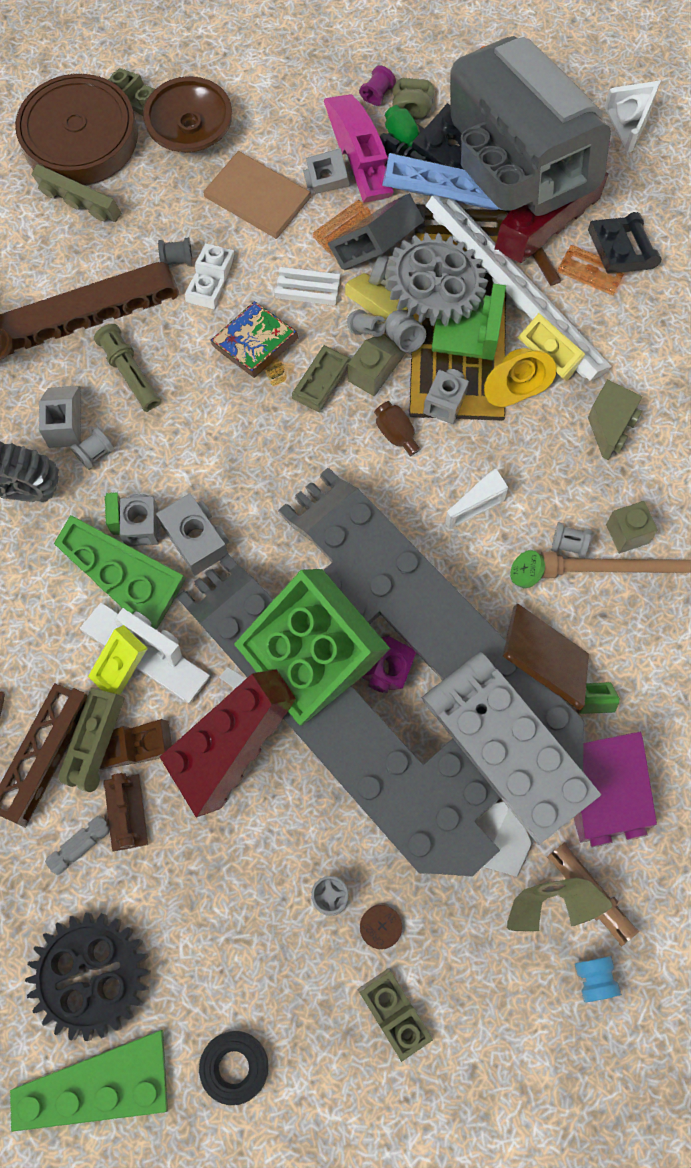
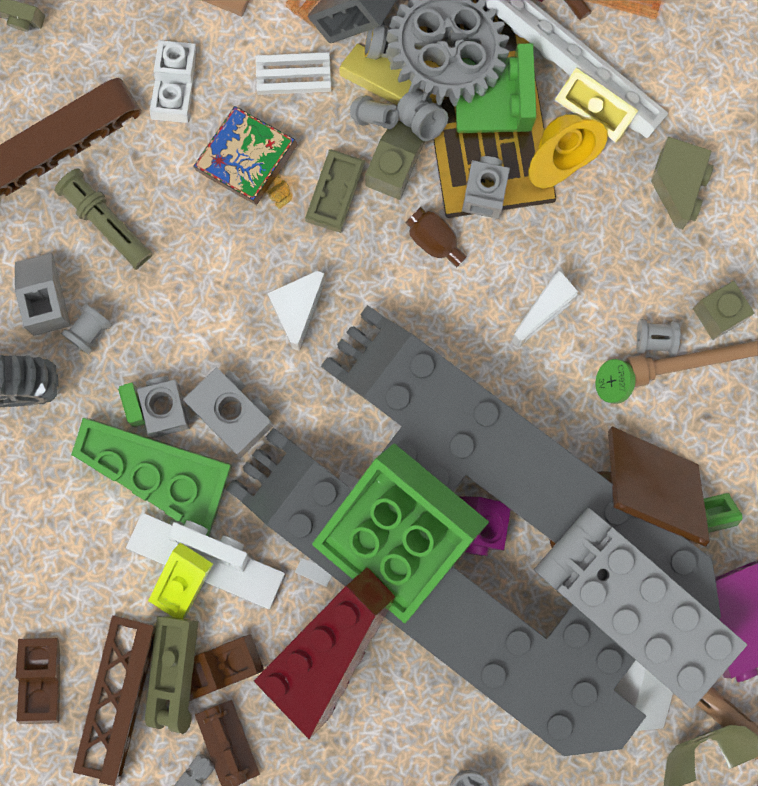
camera: 15 degrees left, 10 degrees up
(175, 252) = (125, 59): dark grey bush -> none
(270, 459) = (296, 304): none -> white slope

